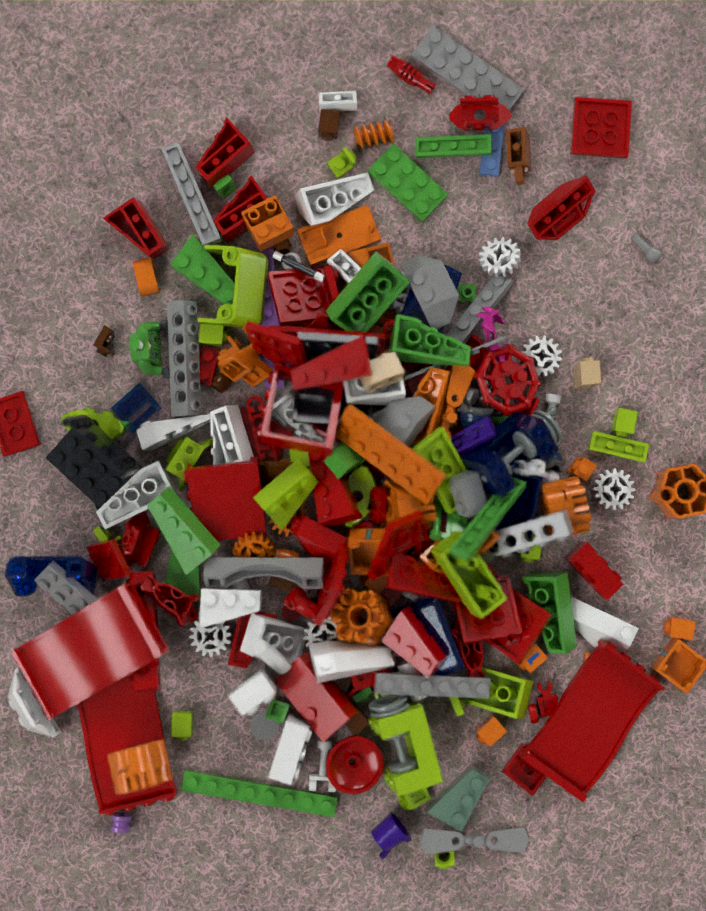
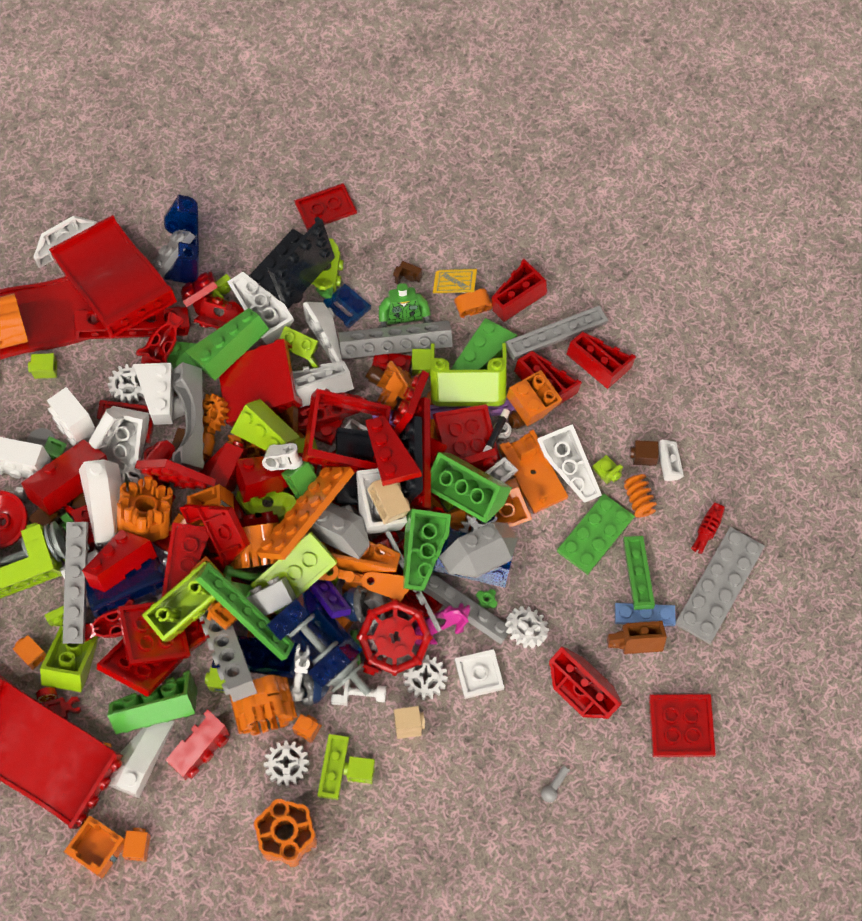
camera: 85 degrees right, 20 degrees down
(118, 293) = (455, 281): none -> yellow sticker
(225, 187) = (569, 363): bright green plate -> none
(323, 477) = (281, 456): none -> white piece
(495, 113) = (676, 611): red piece -> none
(533, 659) = (105, 688): orange brick -> none
(540, 306) = (479, 674): none -> white plate

